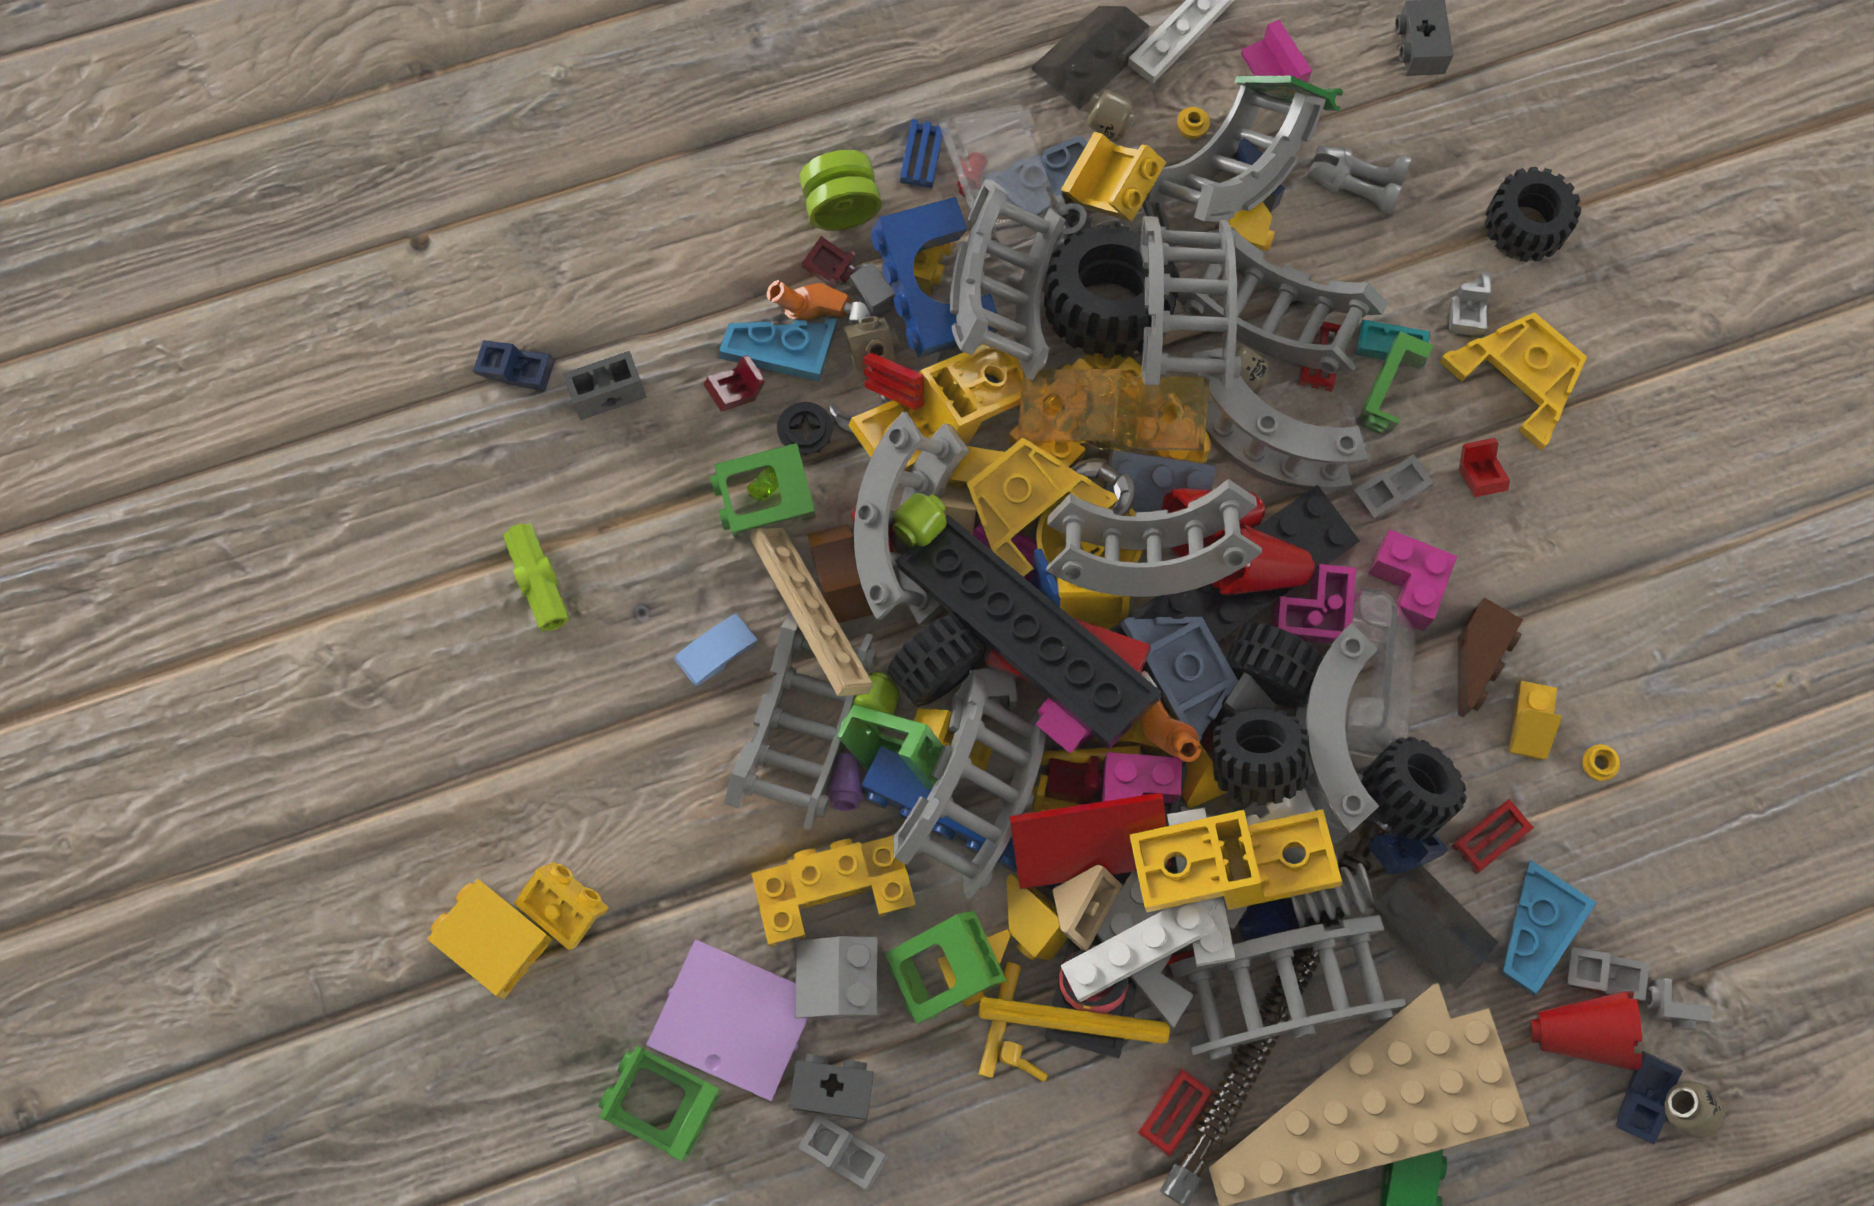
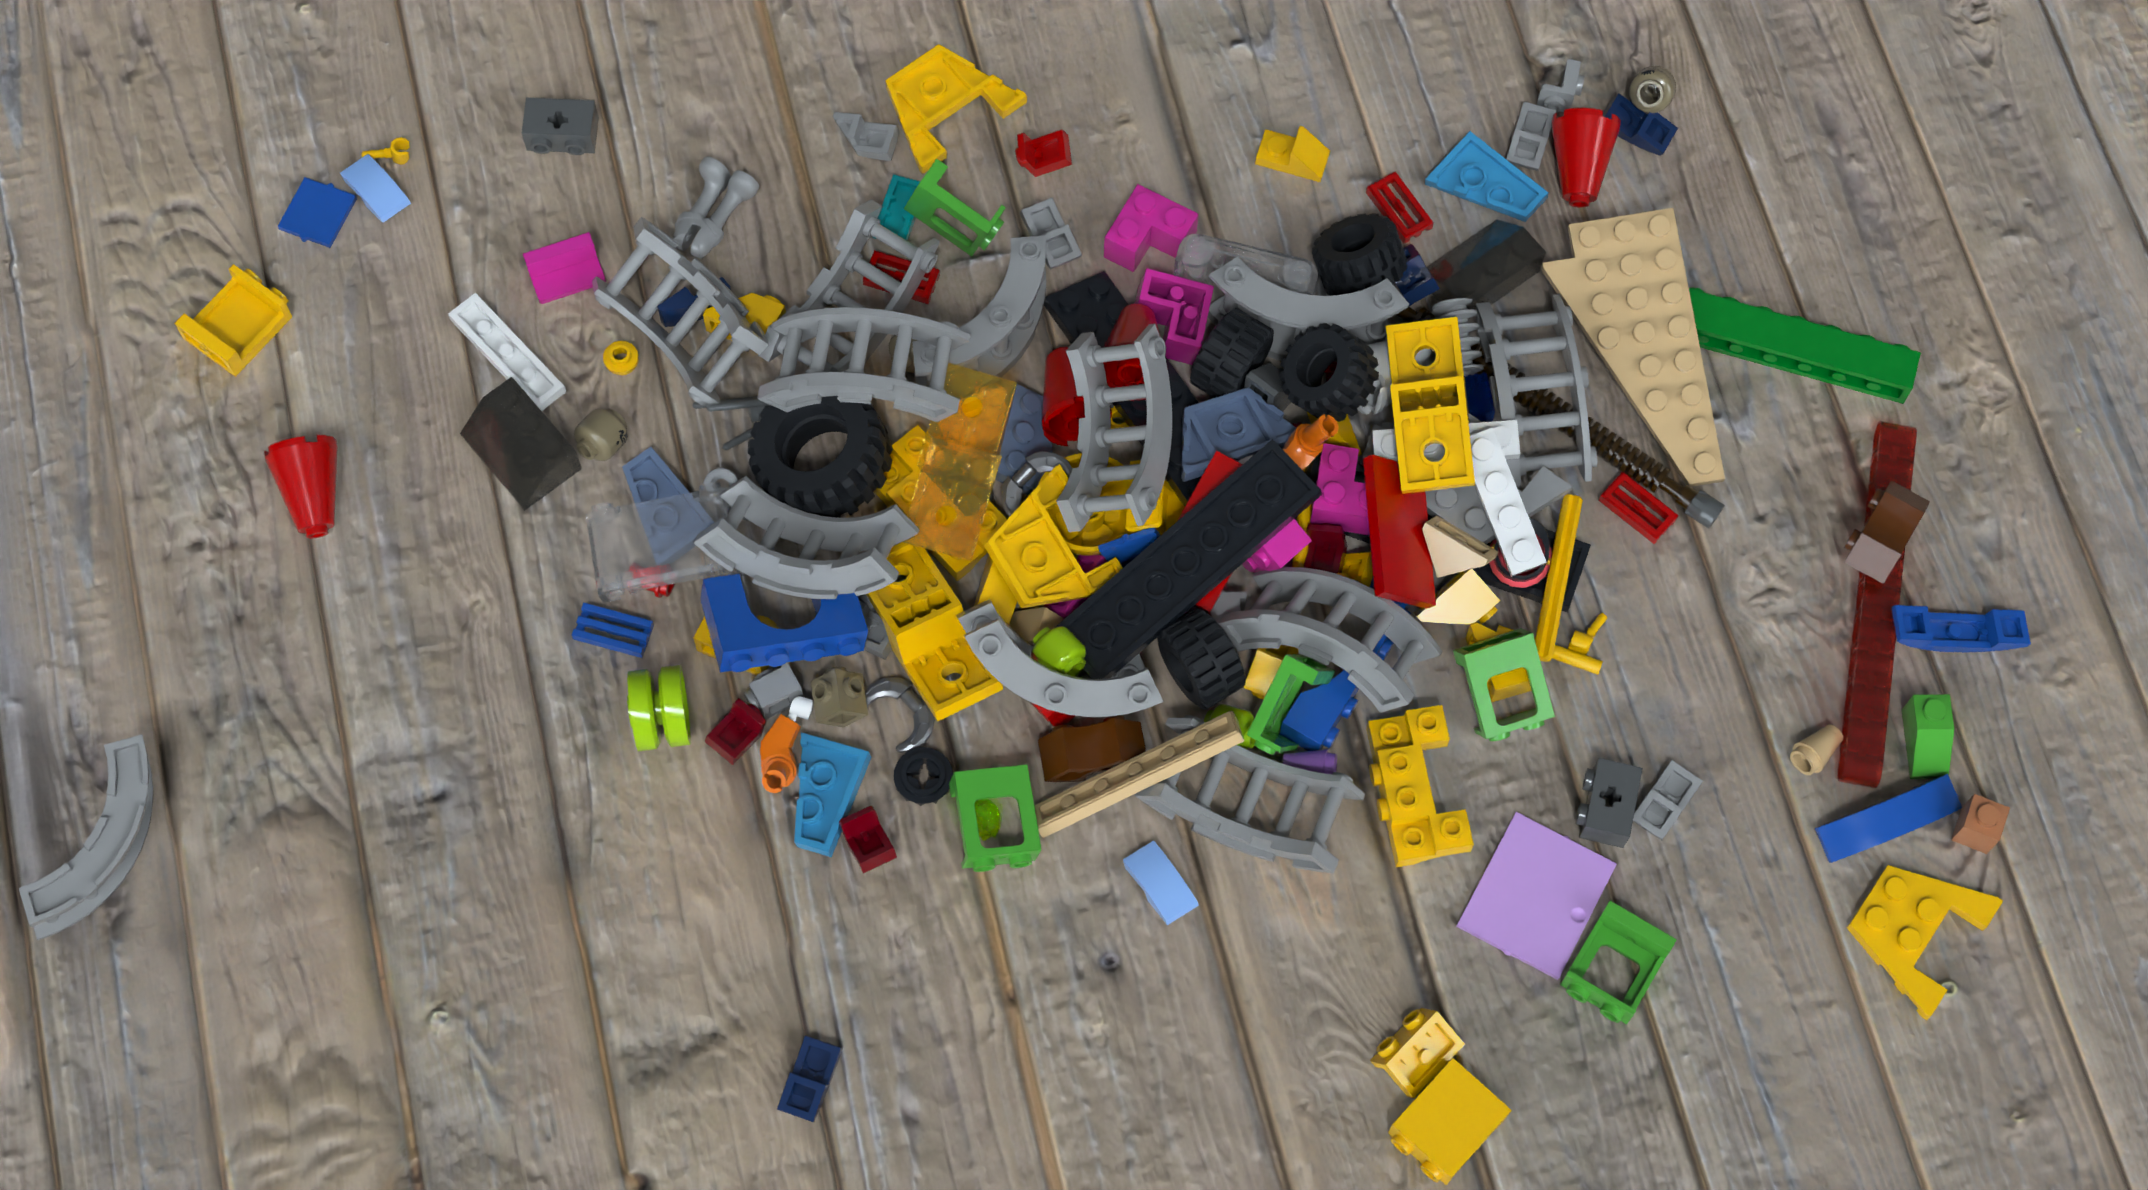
camera: 85 degrees left, 5 degrees down
(536, 577) = (1064, 1061): lime piece -> none
(604, 385) = (855, 972): dark grey brick -> none
(836, 978) = (1506, 786): light grey slope -> none
(894, 386) = (894, 671): red tile -> none
(1113, 177) = (690, 432): yellow panel -> none
(1286, 86) = (611, 266): green flag -> none
(1480, 649) = (1225, 185): reddish brown slope -> none
(1546, 195) = (776, 40): black tyre -> none
(1609, 757) = (1338, 99): yellow plate -> none

